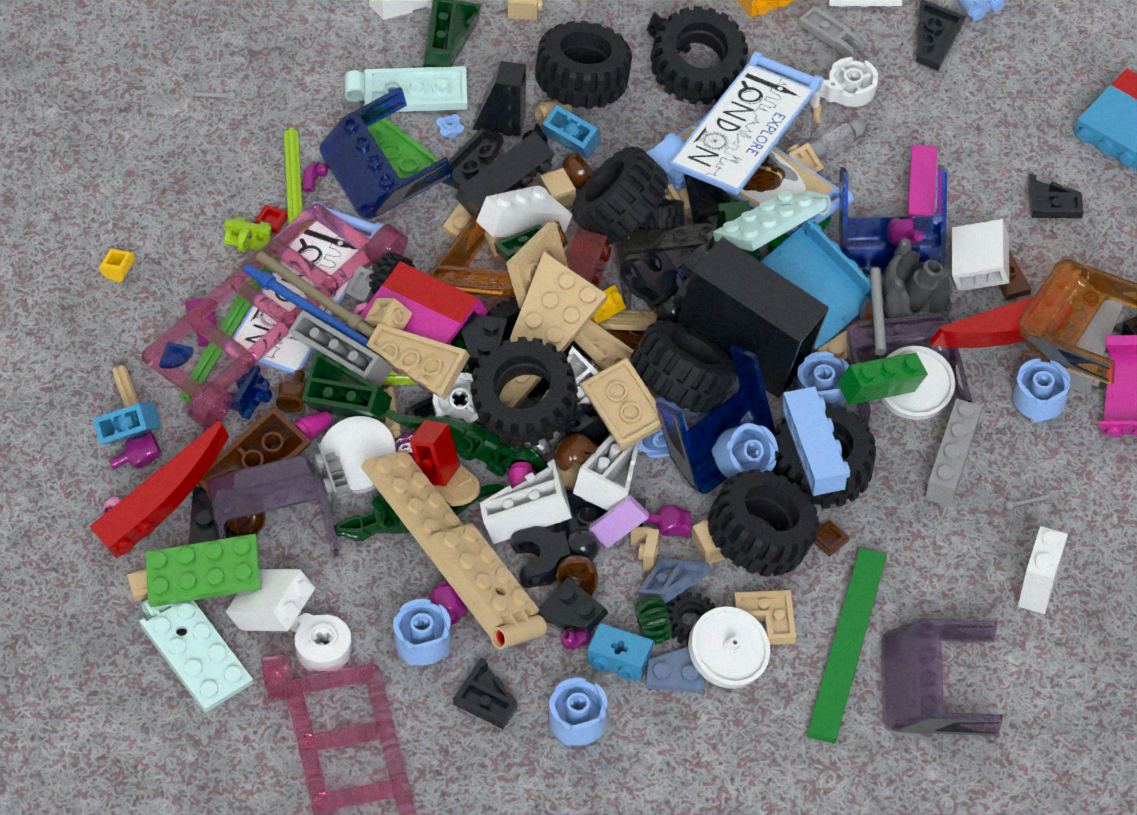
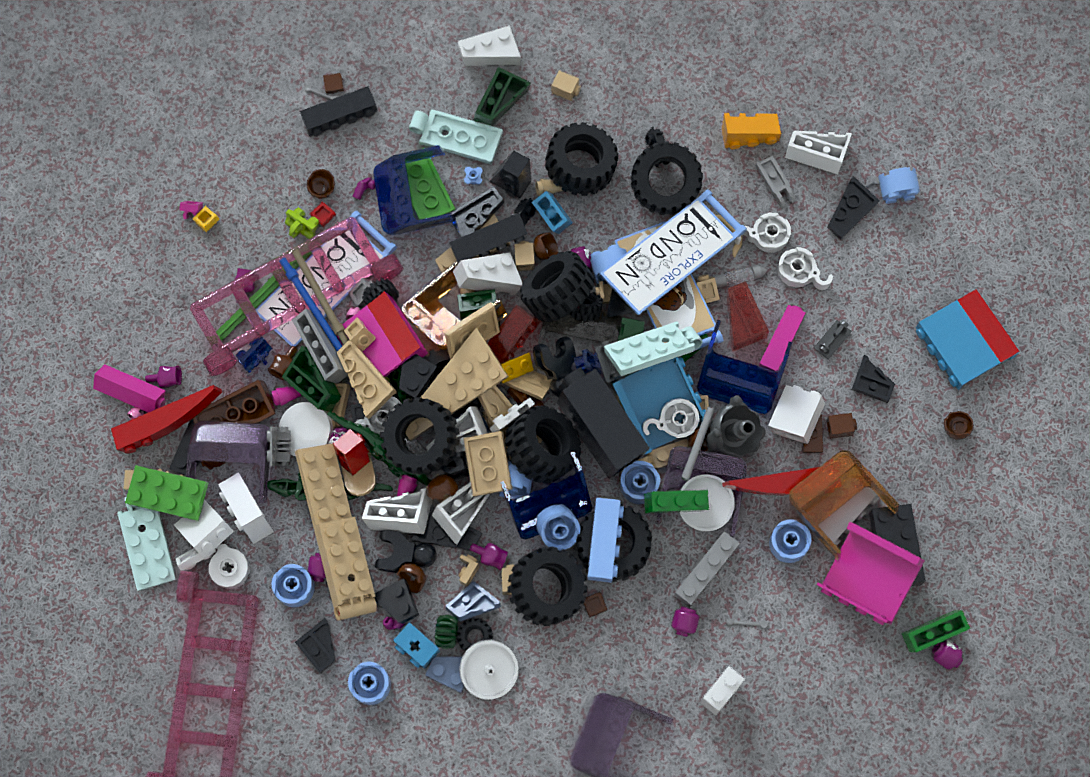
camera: 25 degrees right, 20 degrees up
(90, 256) = (190, 206): none -> dark pink tile
(92, 477) = (128, 389): none -> dark pink brick
(125, 386) = (176, 330): tan axle -> none
(127, 423) = (162, 356): dark azure brick -> none
(175, 355) = (209, 316): clear blue tile -> none
(222, 78) = (333, 83): none -> reddish brown tile
(244, 103) = (339, 111): none -> black brick
(254, 178) = (319, 179): none -> reddish brown hair
(267, 644) = (190, 558): none -> white plate
(293, 174) = (350, 183): lime axle -> none
(322, 562) = (245, 508): none -> white wedge
(619, 521) = (452, 549): lavender tile -> none
(631, 339) = (514, 412): none -> white wing
(774, 609) = (533, 650): tan plate -> none
(837, 281) = (667, 423): none -> white piece
(847, 646) = (571, 692): green tile -> none
(869, 176) = (744, 317): none -> clear red wedge
(903, 228) = (746, 381): magenta piece -> none
(906, 110) = (807, 273): none -> white piece
(955, 517) = (685, 621): none -> magenta head
(982, 170) = (833, 339): none -> dark grey hinge
(1038, 254) = (841, 425): none -> reddish brown brick

